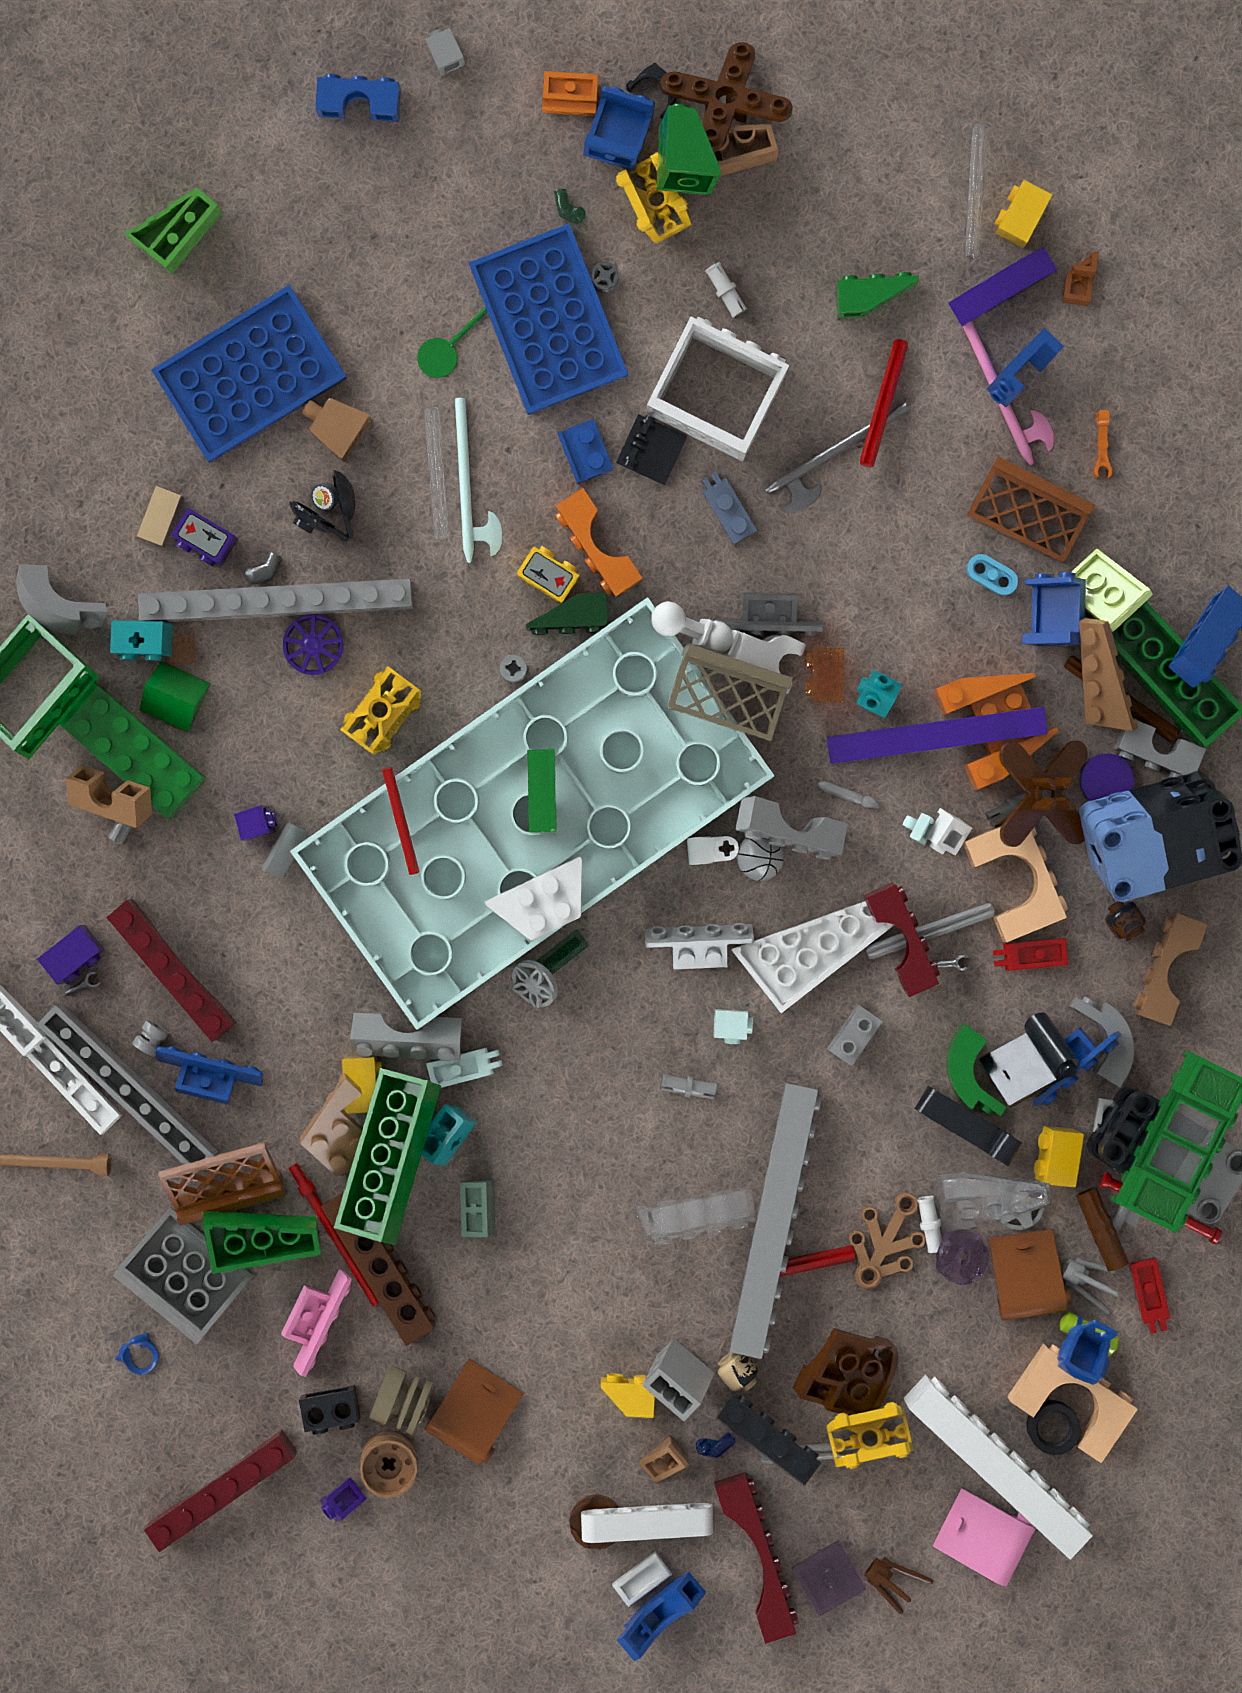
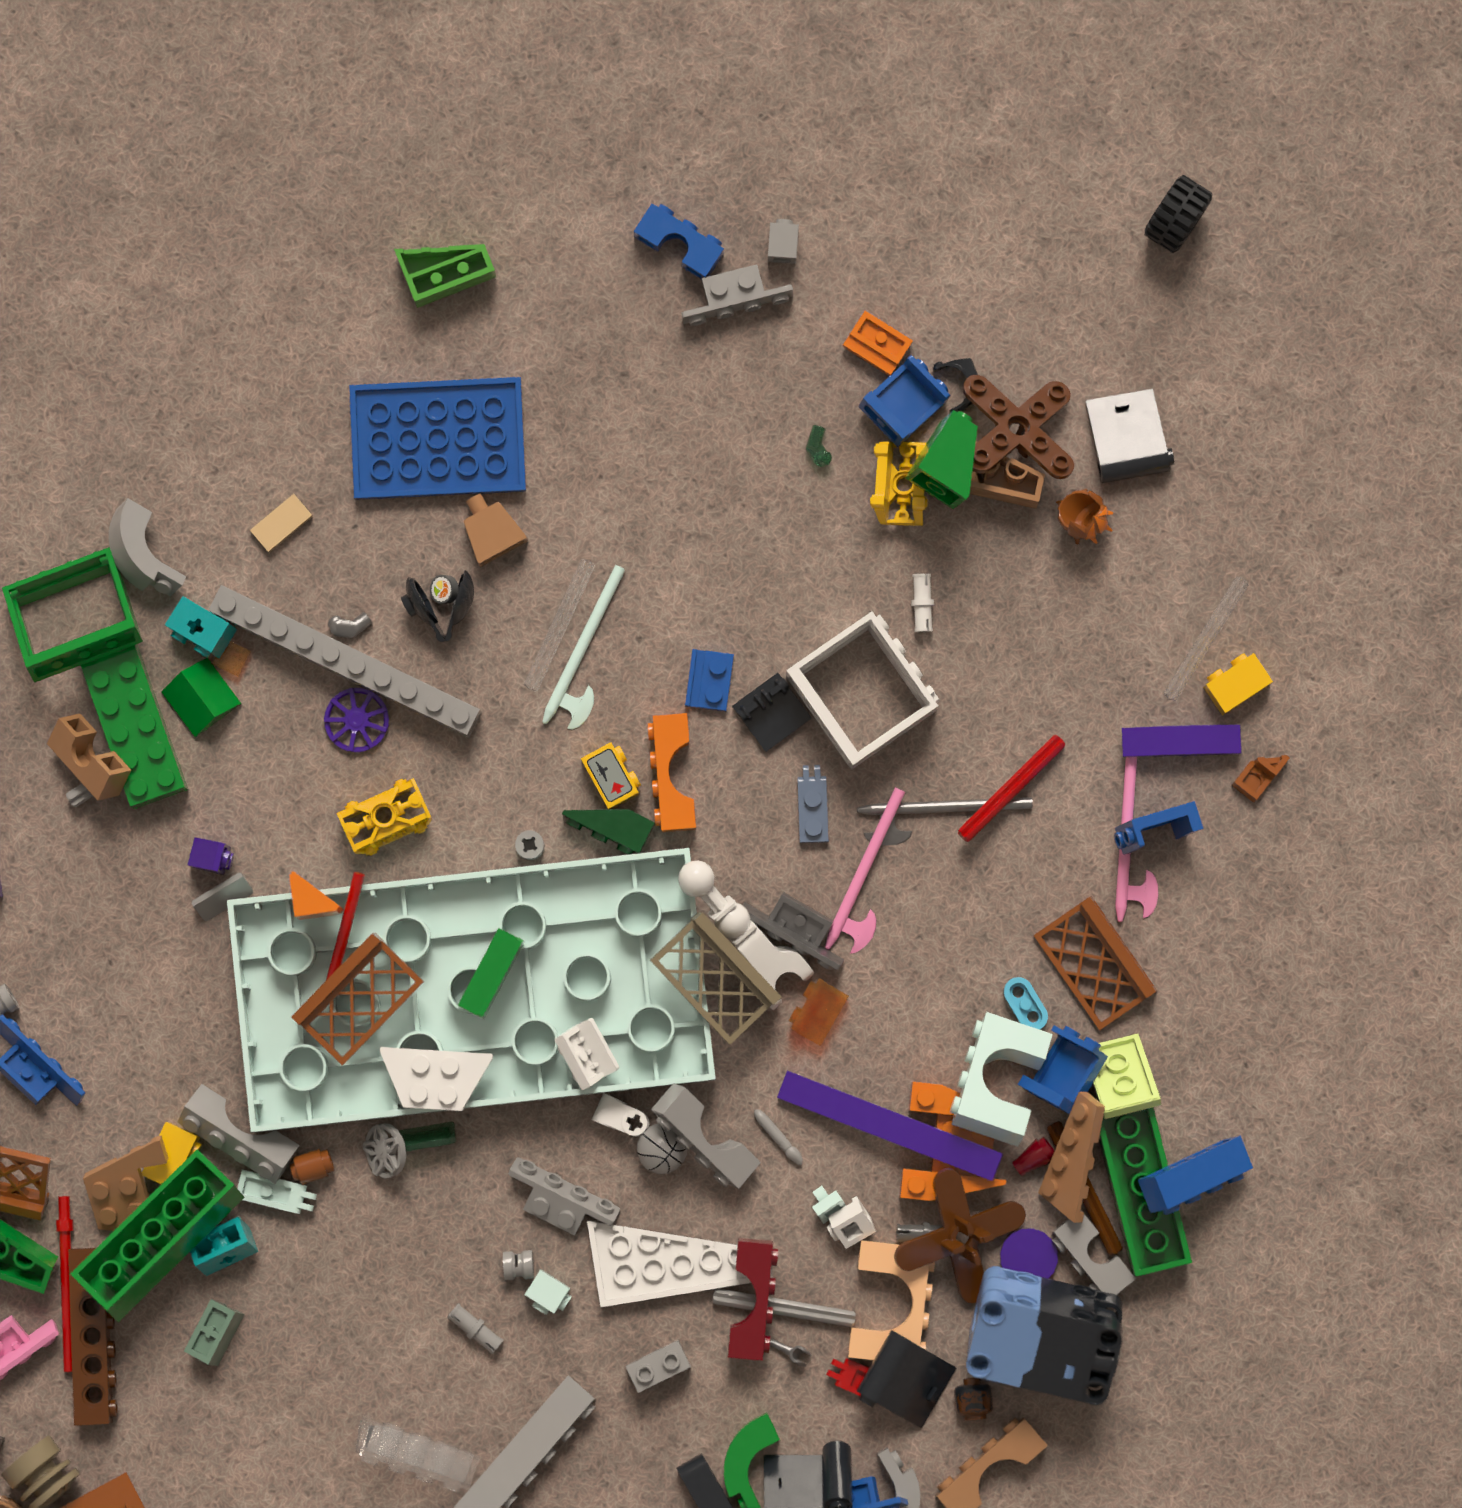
camera: 25 degrees right, 5 degrees down
(171, 972) = (53, 950): dark red arch -> none
(204, 537) = (311, 566): brick -> none
(359, 813) = (309, 901): none -> orange slope
(420, 865) = (340, 980): none -> dark orange fence
(427, 115) = (734, 292): none -> light grey bracket
(438, 356) = (622, 517): green piece -> none
(481, 1029) = (312, 1166): none -> dark orange brick
(548, 319) = (742, 539): blue plate -> none
(602, 272) = (816, 524): dark grey wheel -> none
(657, 813) = (586, 1053): none -> white bracket
(699, 1011) = (525, 1265): none -> light grey wheel
(820, 57) = (1128, 436): none -> door
(820, 141) = (1083, 515): none -> dark orange hair
(826, 587) = (867, 927): none -> bright pink piece
(862, 296) = (1048, 679): green slope -> none
(878, 693) = (856, 1055): teal brick -> none
(1001, 679) = (976, 1106): none -> light aqua arch
(1062, 935) = (905, 1379): none -> black door
(1067, 695) = (1034, 1156): none -> dark red cone
(1102, 460) = (1188, 953): orange piece -> none

